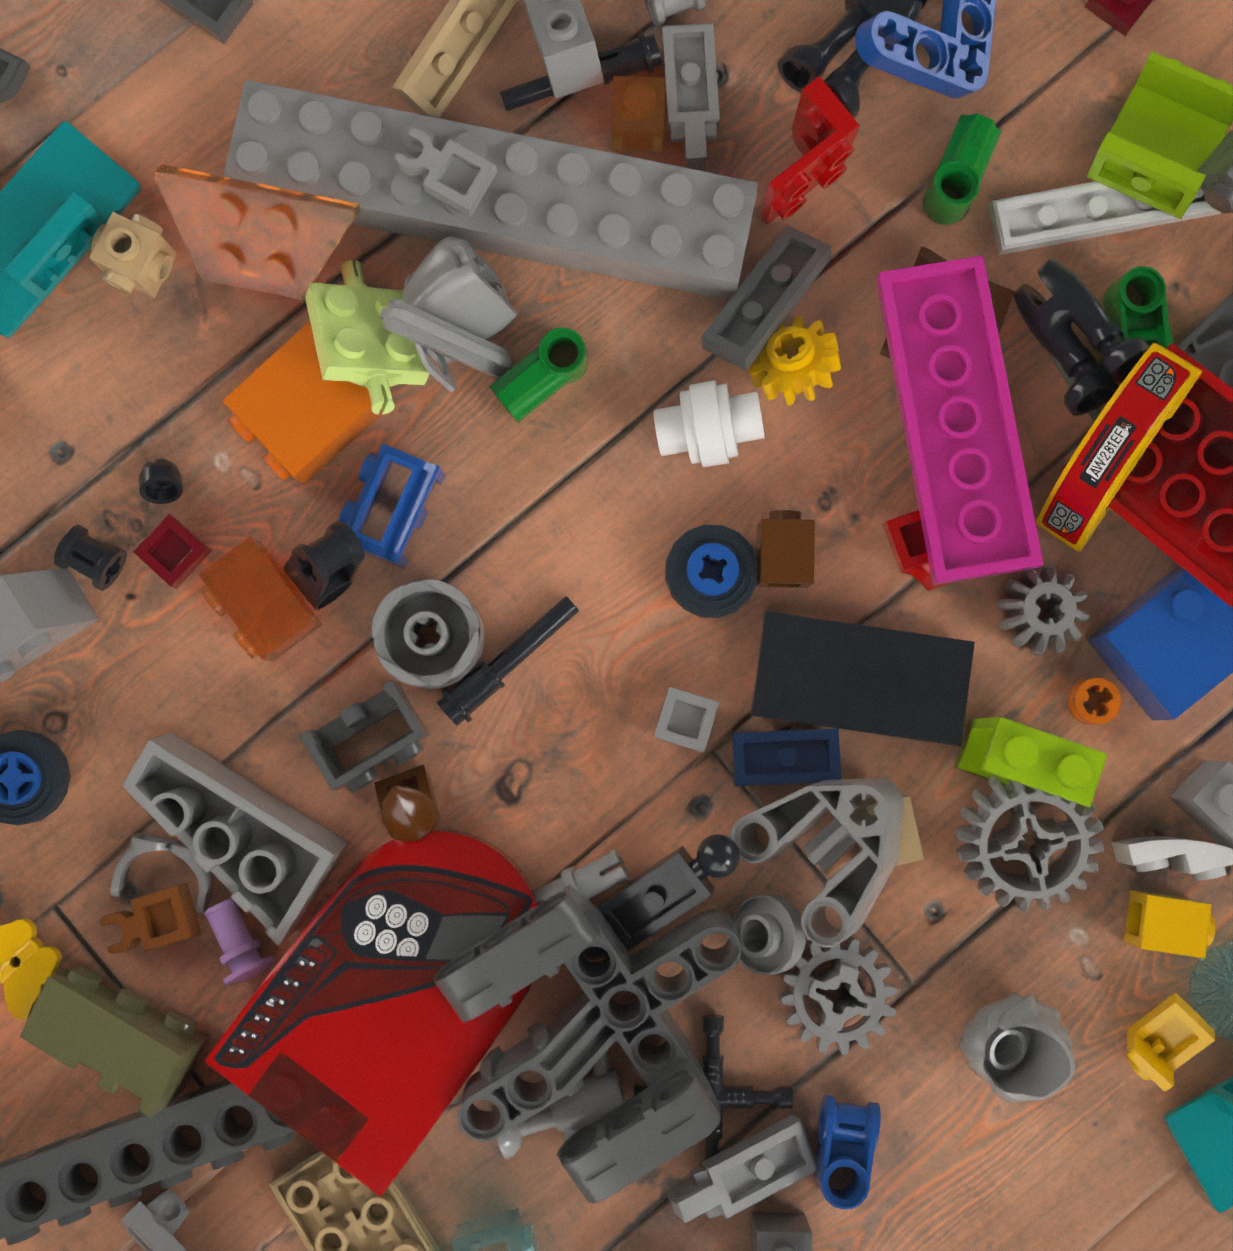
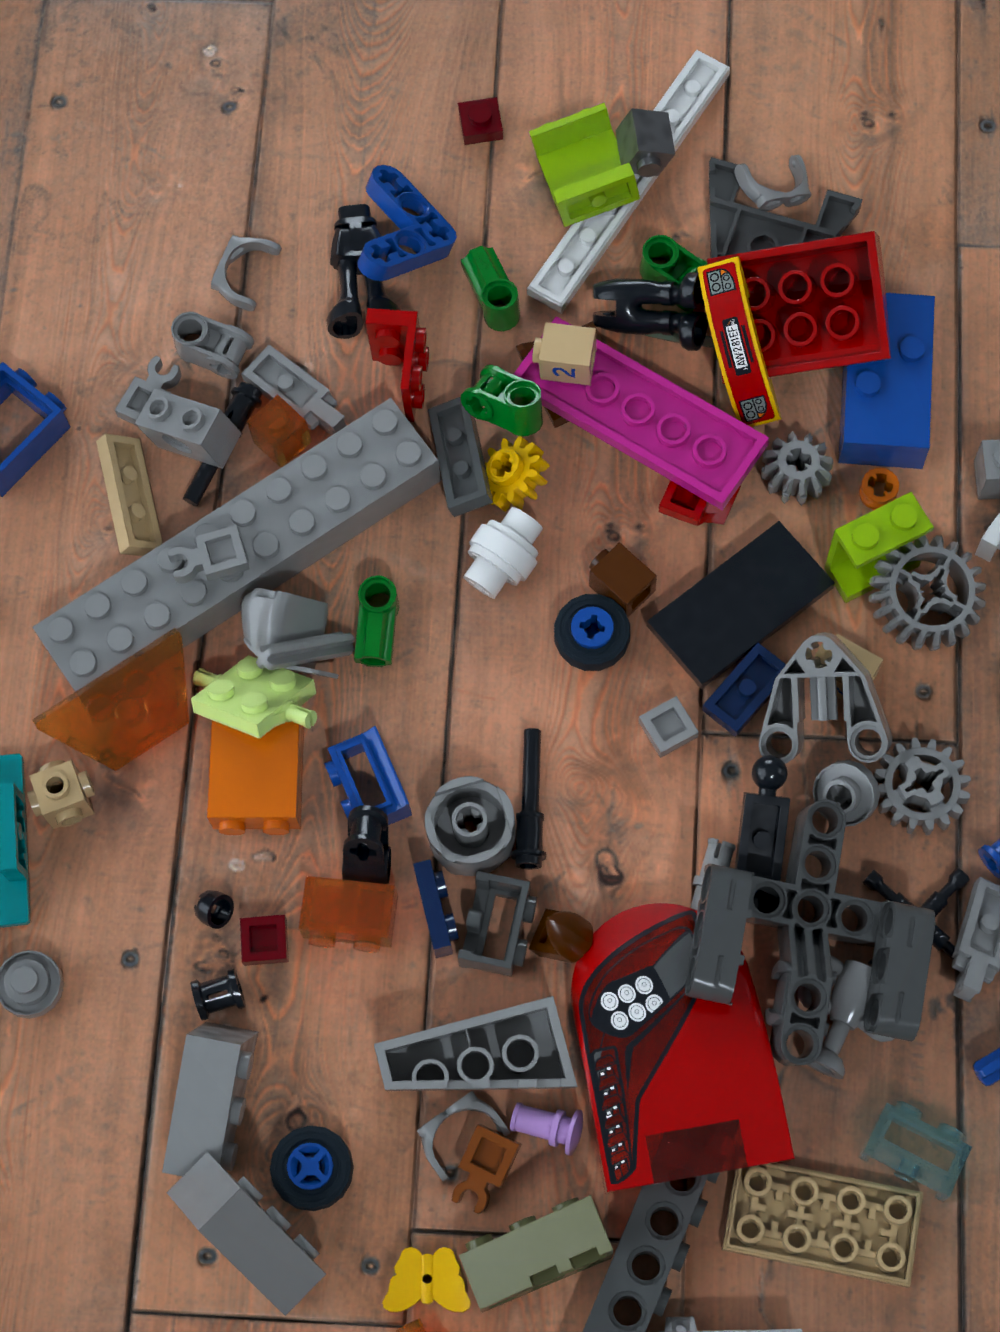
camera: 40 degrees left, 15 degrees down
(321, 689) = (441, 926): none -> dark blue plate
(852, 282) = (507, 401): none -> green piece
(949, 301) = (566, 353): none -> tan brick

